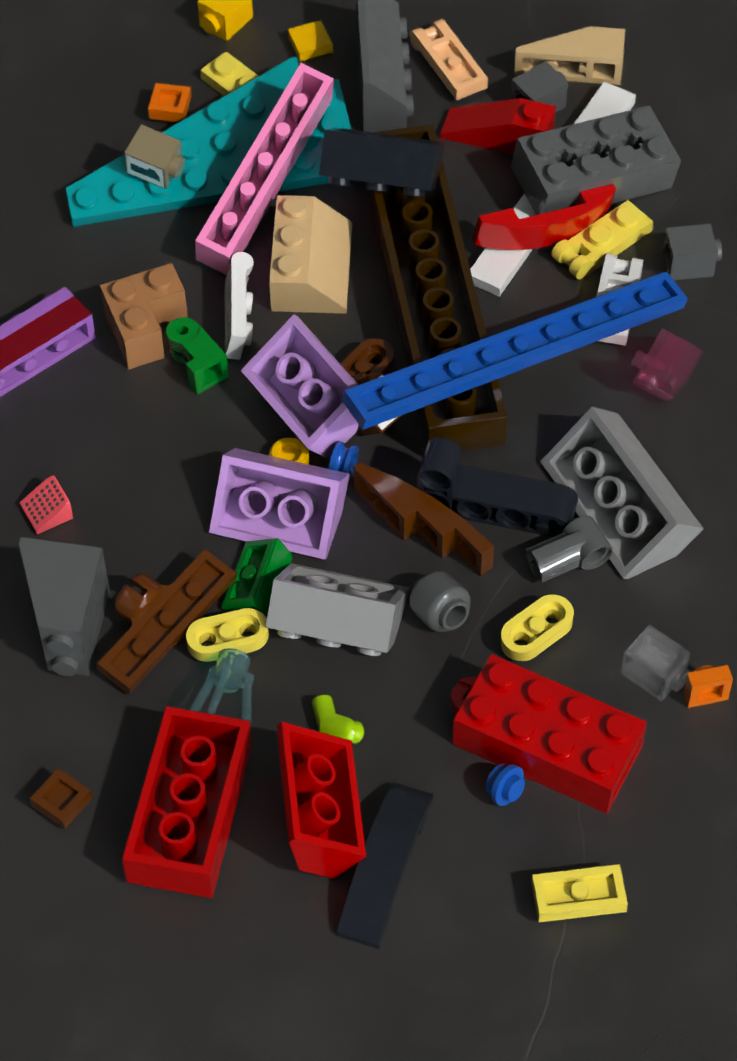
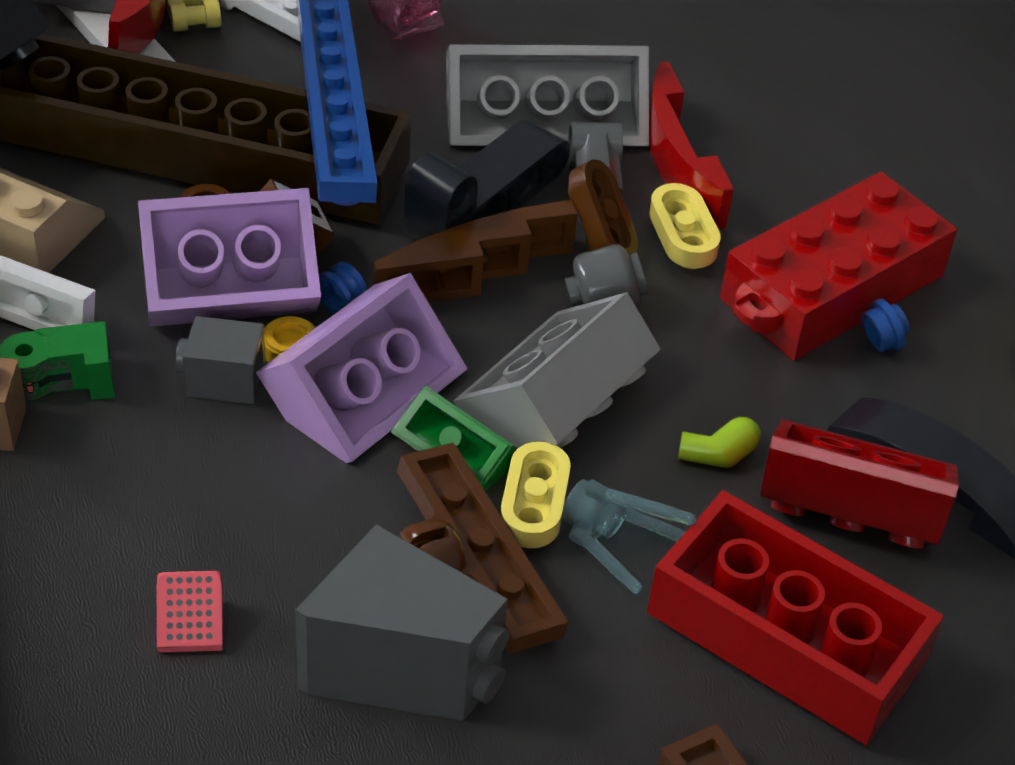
camera: 70 degrees left, 10 degrees down
(242, 425) = (222, 359): none -> dark grey brick
(503, 570) = (601, 207): none -> reddish brown plate
(656, 663) = (784, 155): clear brick -> none
(659, 566) = (674, 153): none -> red slope
(707, 685) = (830, 131): orange plate -> none

